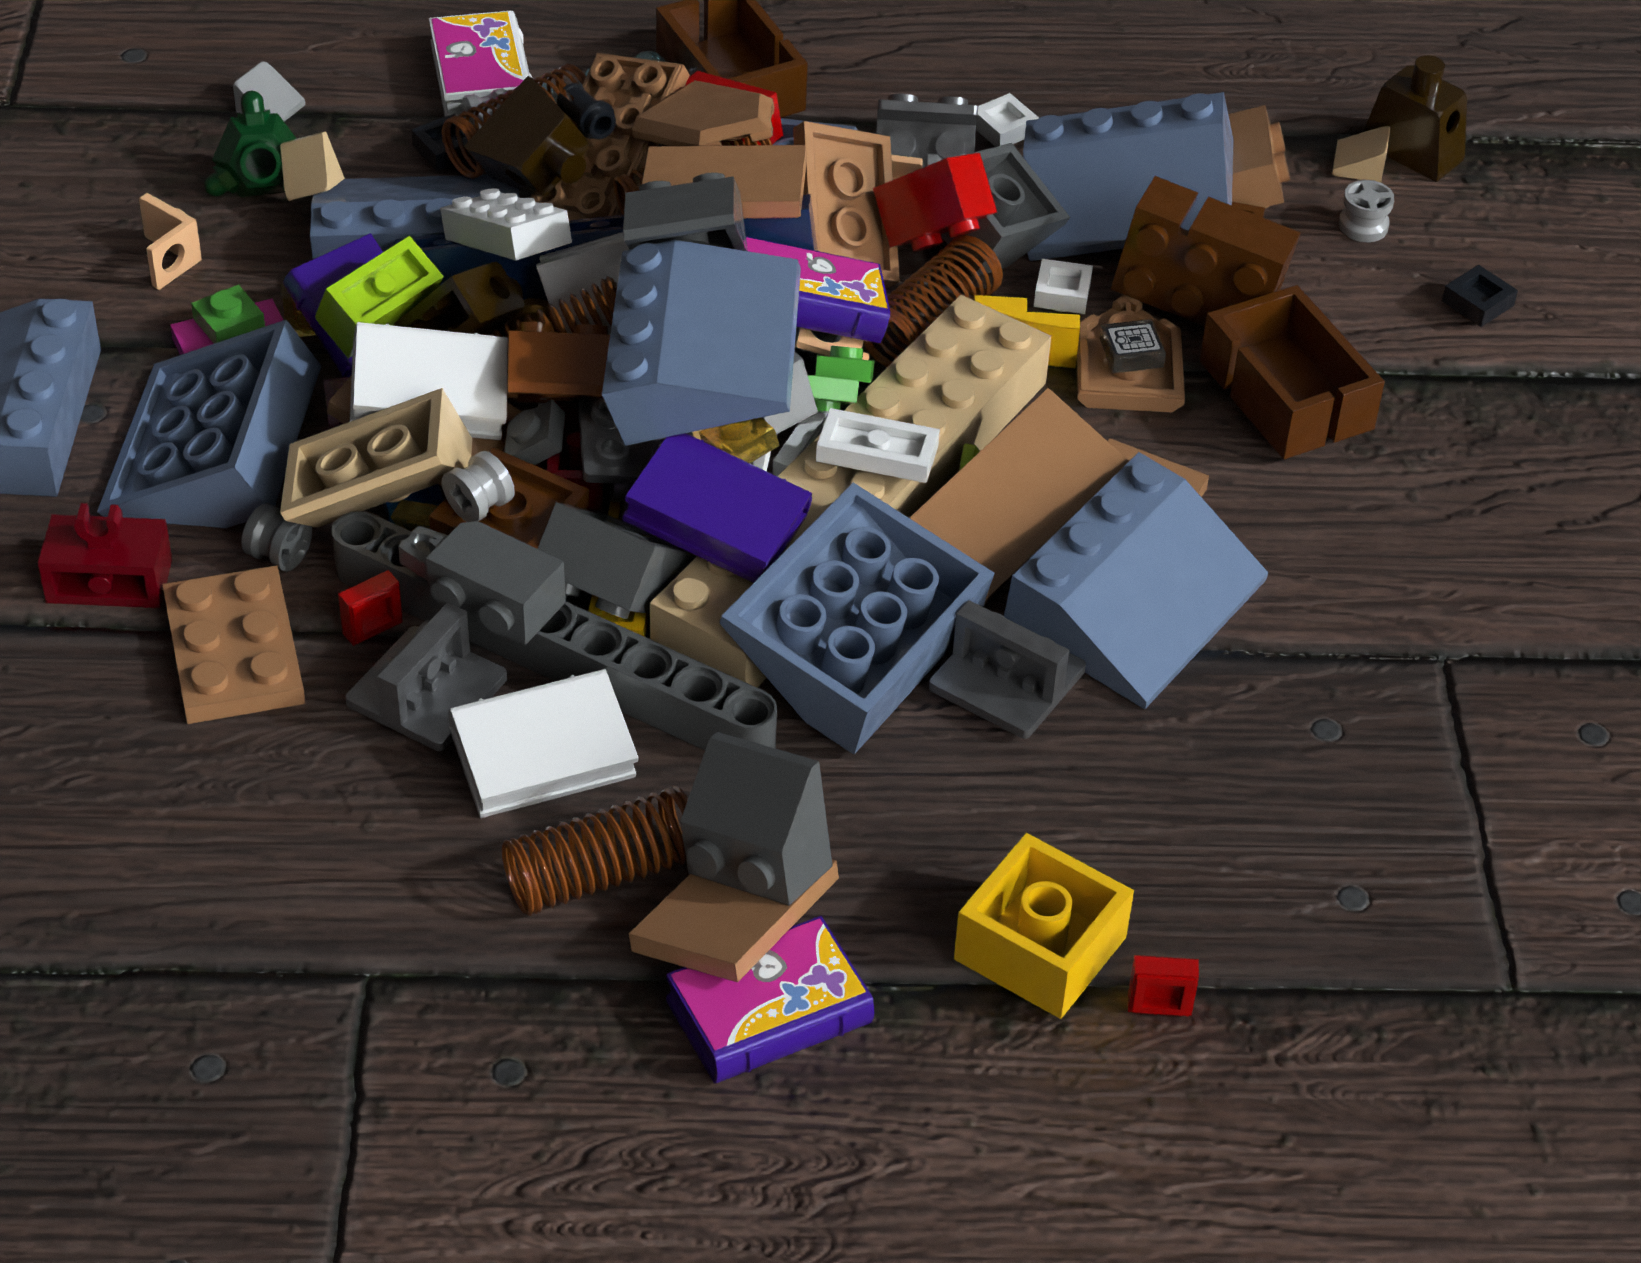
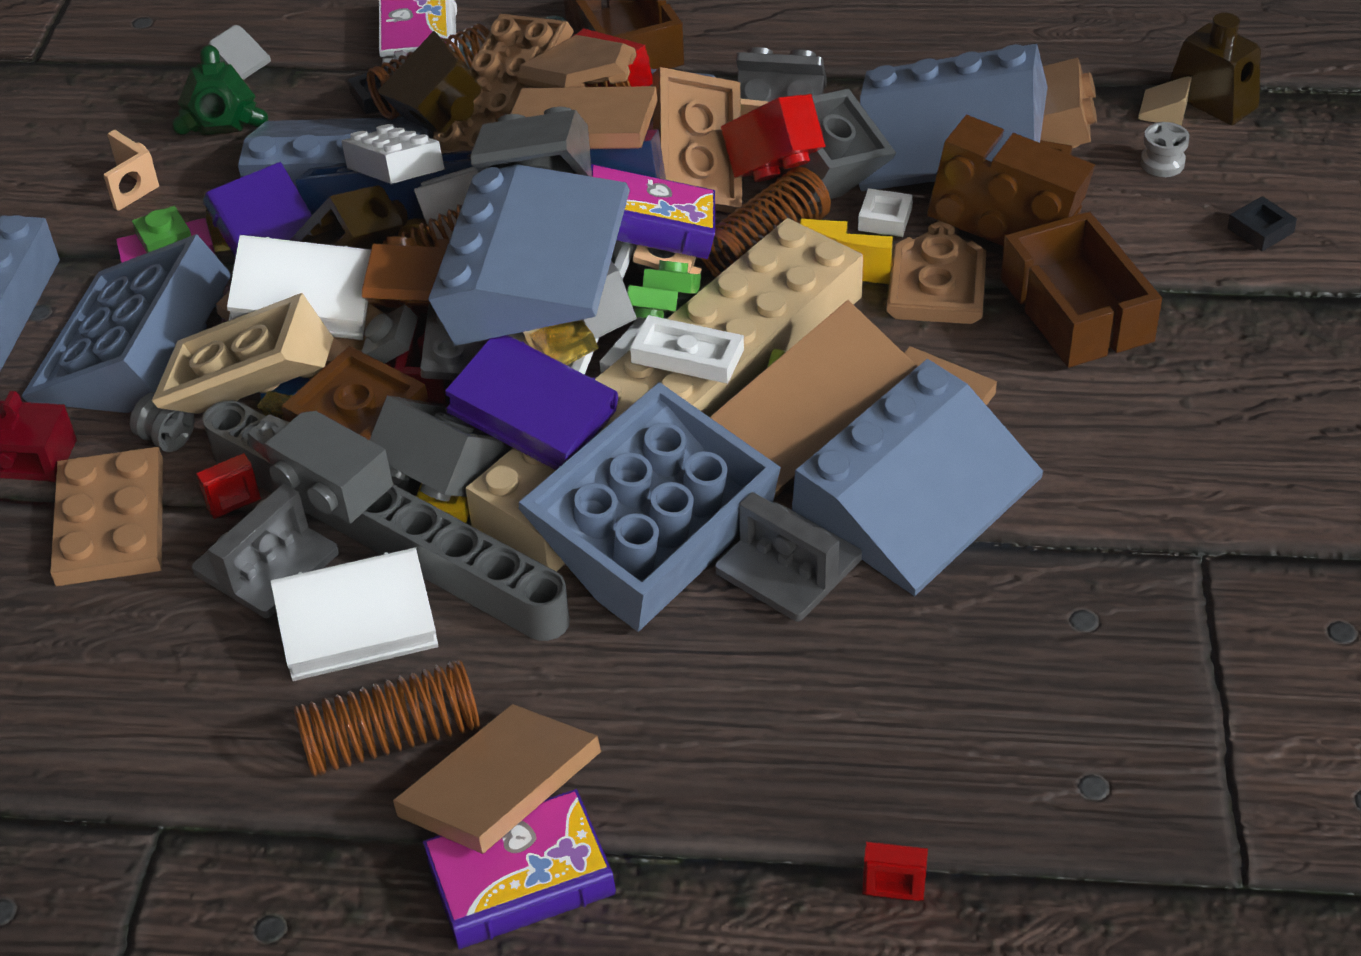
camera: 10 degrees right, 0 degrees up
(309, 166) = (252, 108): tan slope -> none
(377, 292) = (276, 207): lime panel -> none
(478, 486) = (322, 380): light grey wheel -> none
(592, 116) = (484, 65): black pin -> none
(756, 820) = (520, 697): dark grey slope -> none
(1003, 120) = (848, 71): white plate -> none
(1043, 925) = (784, 807): yellow brick -> none
(1132, 346) = (939, 264): tile -> none

